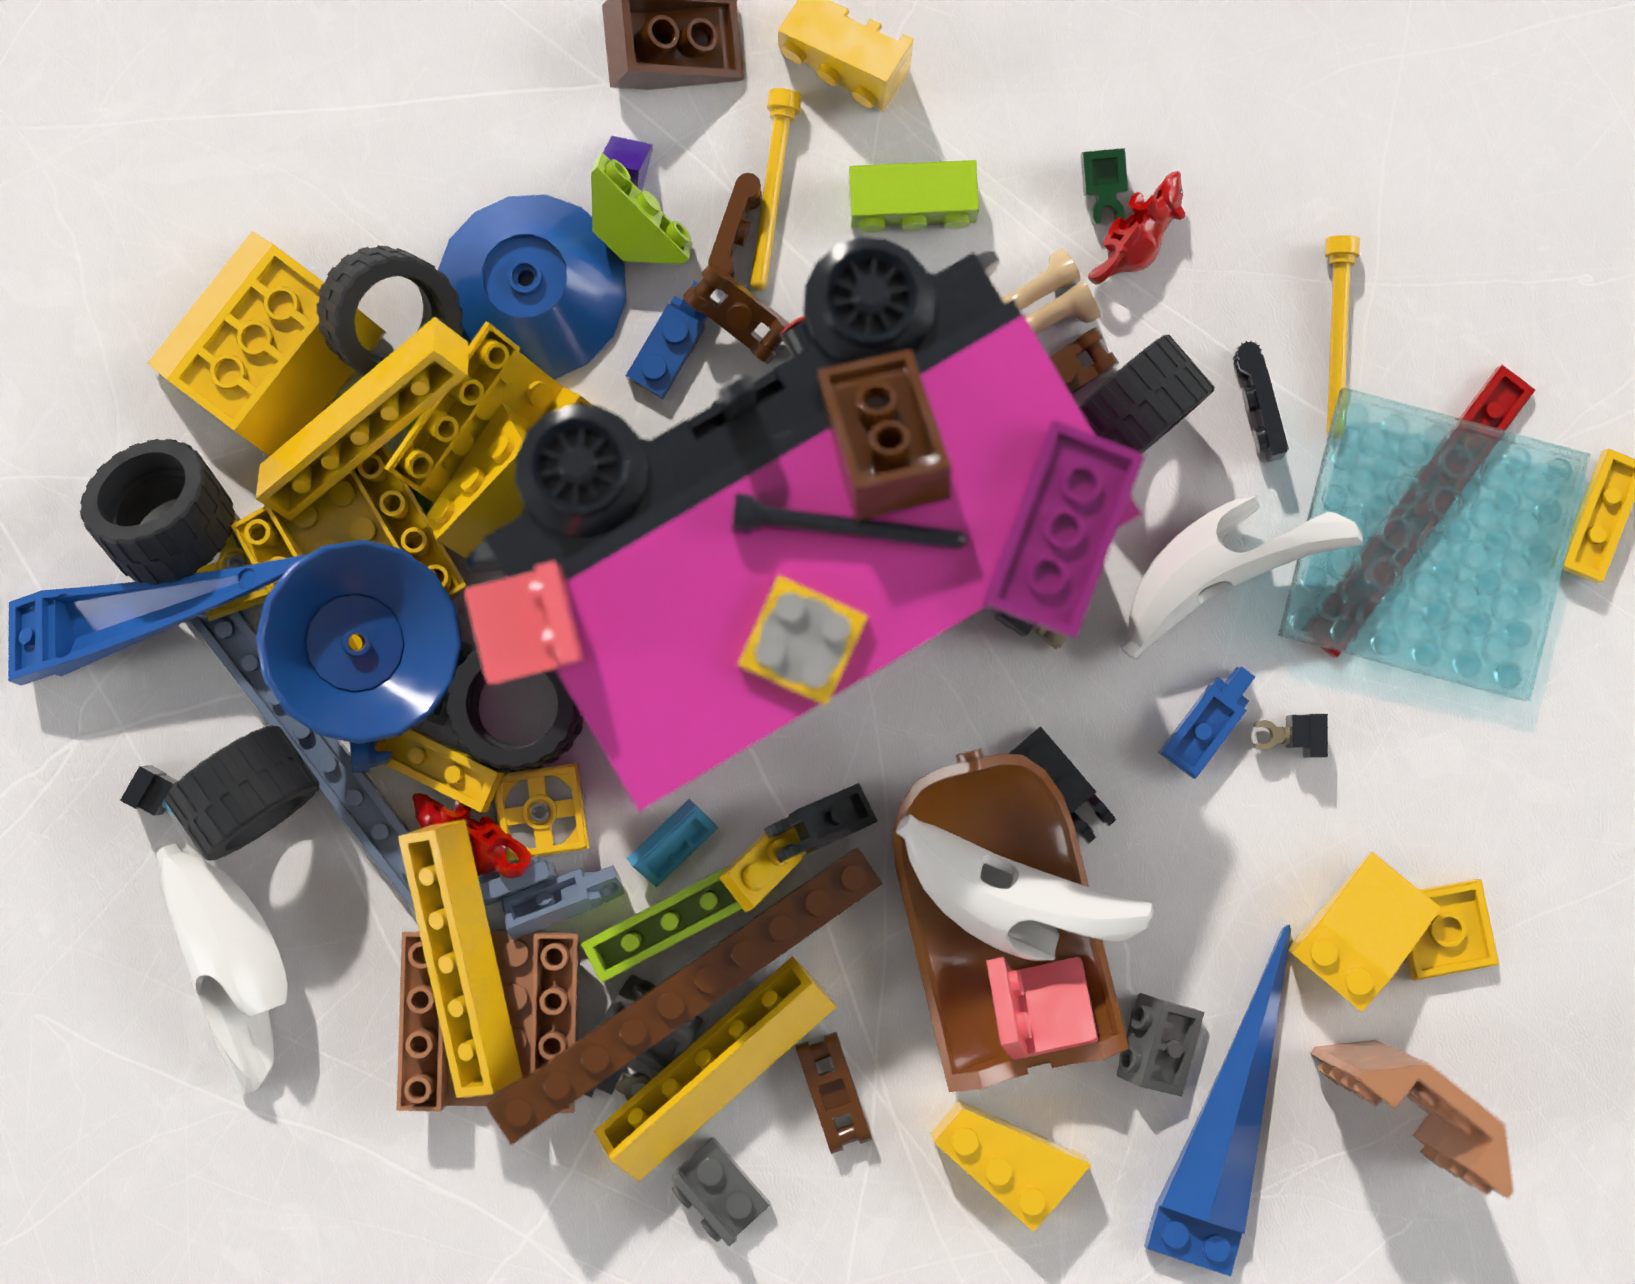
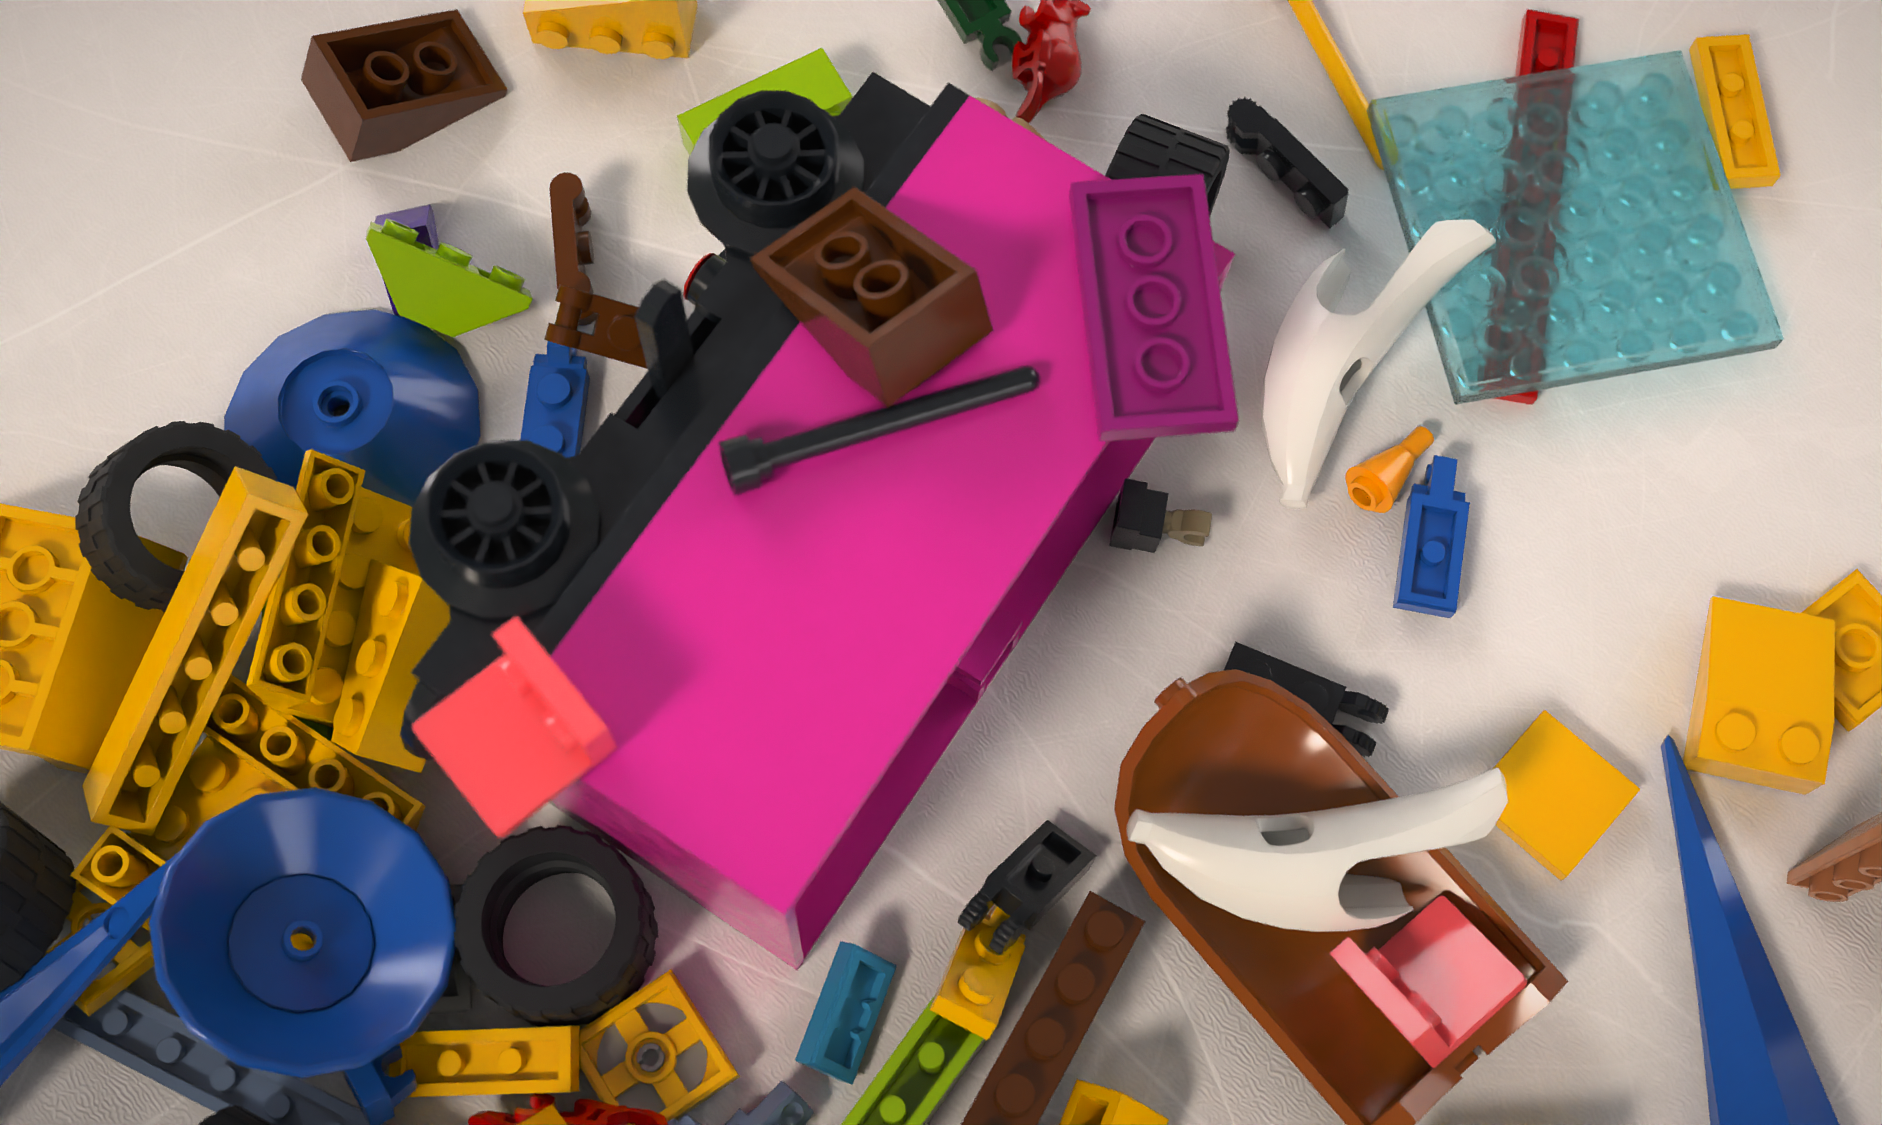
camera: 25 degrees left, 15 degrees down
(783, 107) = (569, 97): yellow piece -> none
(802, 640) = (894, 589): light grey piece -> none
(1160, 1044) = (1604, 958): dark grey bracket -> none
(1193, 926) = (1559, 795): none -> yellow tile
(1198, 662) = (1379, 479): none -> light orange cone
(1301, 731) = (1544, 501): black piece -> none

